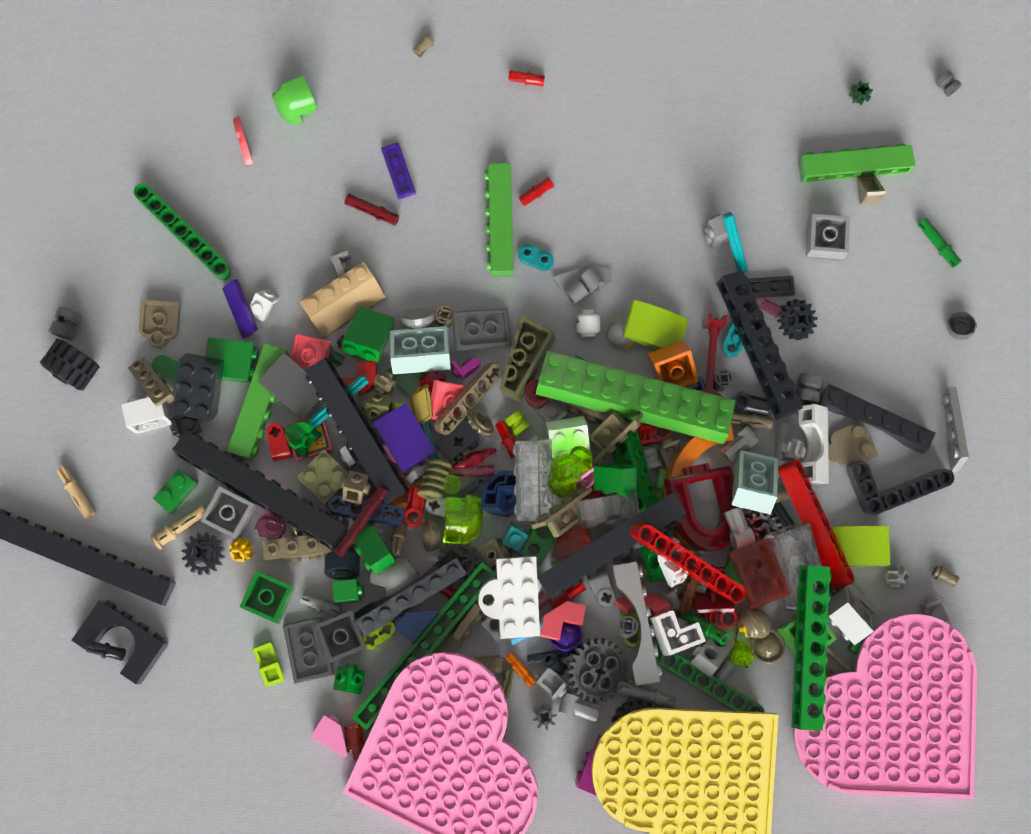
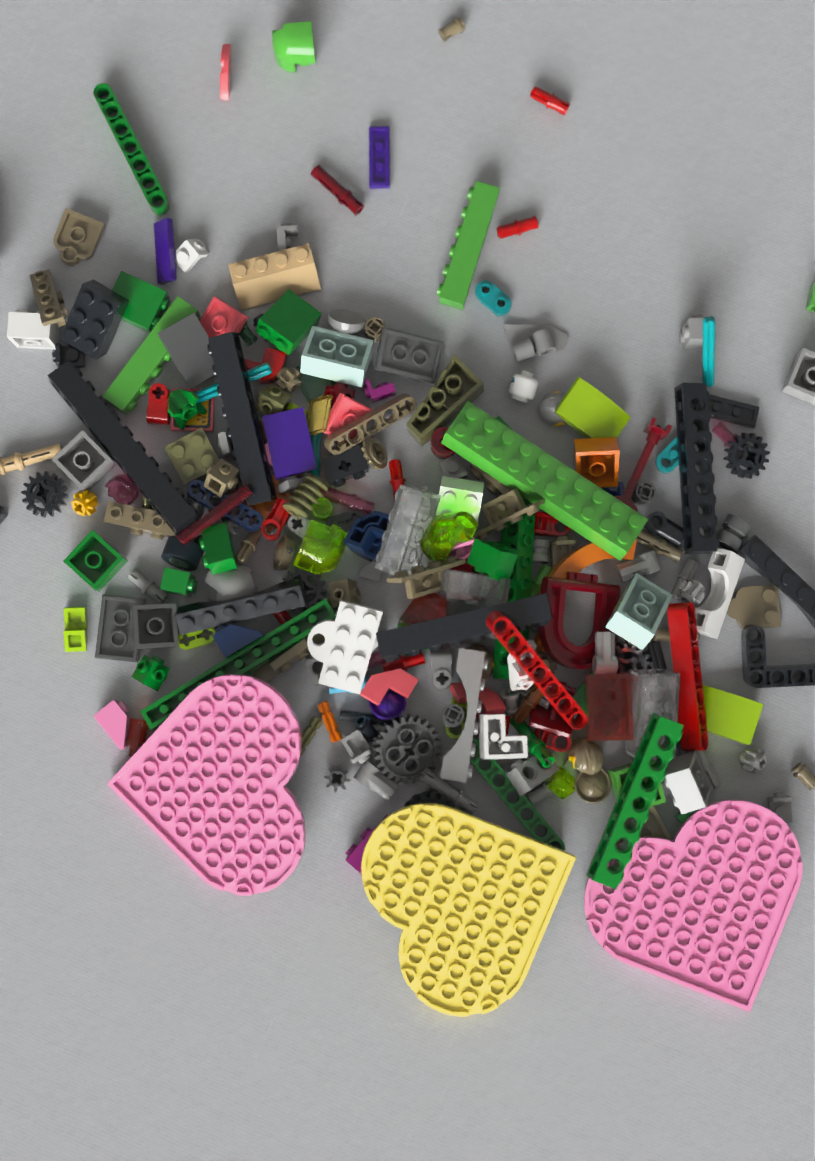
camera: 20 degrees right, 5 degrees up
(166, 366) = (68, 286): green tile -> none
(175, 491) = (36, 420): green brick -> none
(475, 458) = (356, 488): dark red piece -> none
(493, 663) = (301, 706): dark tan cone -> none
(514, 536) = (369, 583): teal brick -> none
(517, 423) = (413, 467): lime wheel -> none
(543, 544) = (397, 602): green brick -> none

